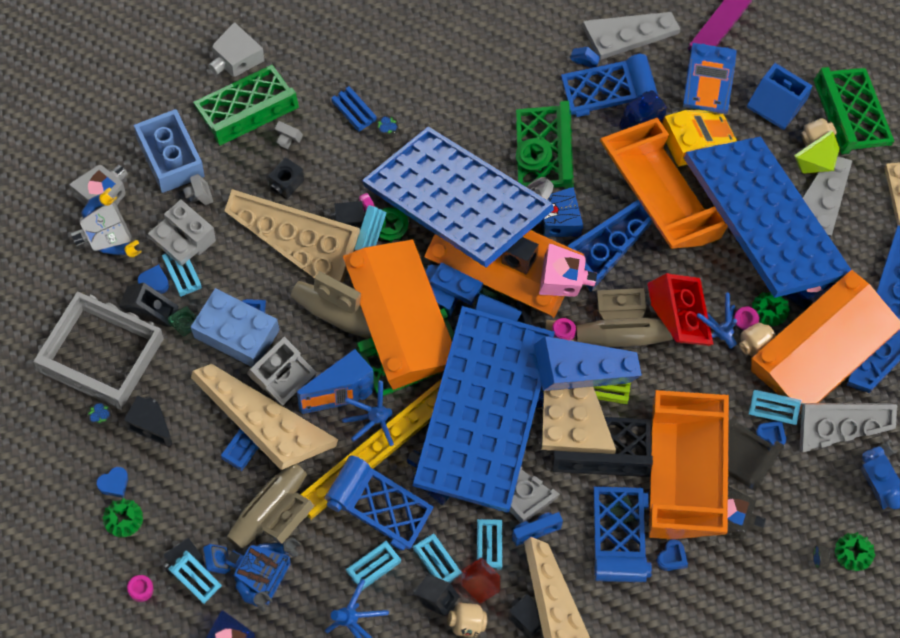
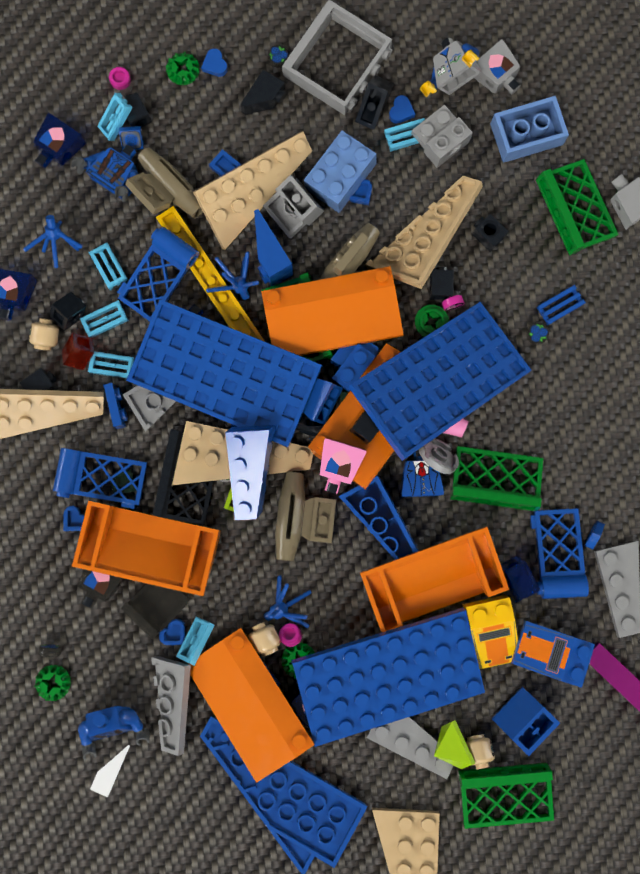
camera: 105 degrees right, 20 degrees up
(182, 320) = (357, 130): clear green tile -> none
(198, 190) = (486, 155): light grey tile -> none
(287, 134) = (537, 239): light grey tile -> none
(370, 228) = (422, 300): medium azure tile -> none
(541, 149) = (492, 456): green gear -> none
(564, 329) = (296, 459): dark pink tile -> none
(677, 303) = (303, 568): red slope -> none

